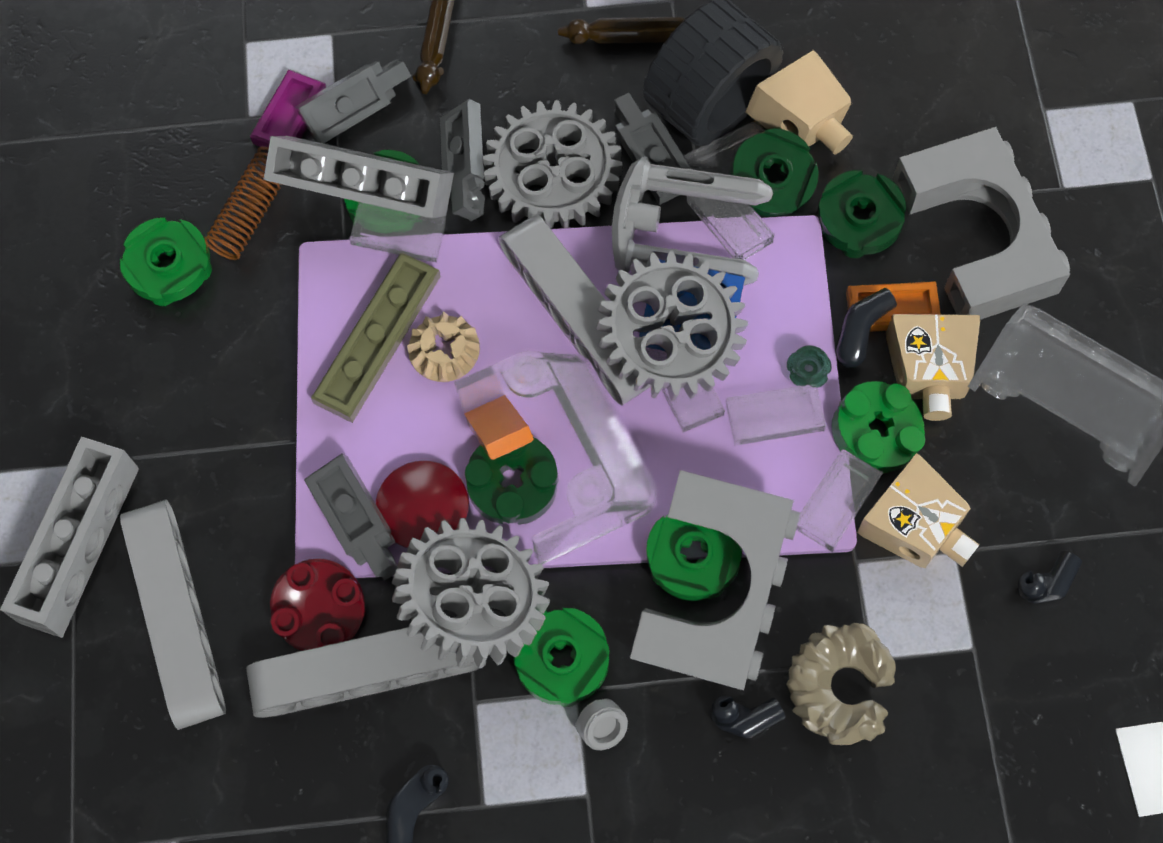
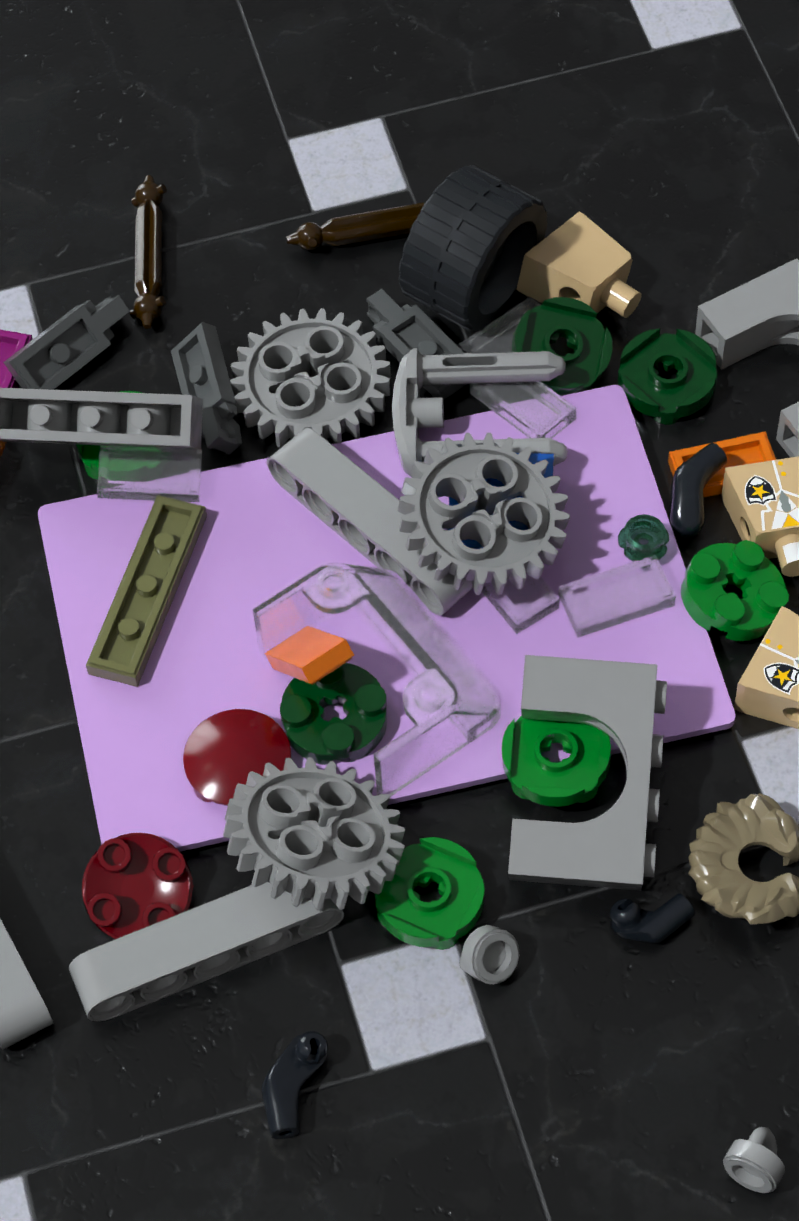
camera: 10 degrees left, 10 degrees down
(353, 515) = (161, 779): dark grey hinge -> none
(437, 365) = (223, 606): tan gear -> none
(837, 500) = (705, 672): clear tile -> none

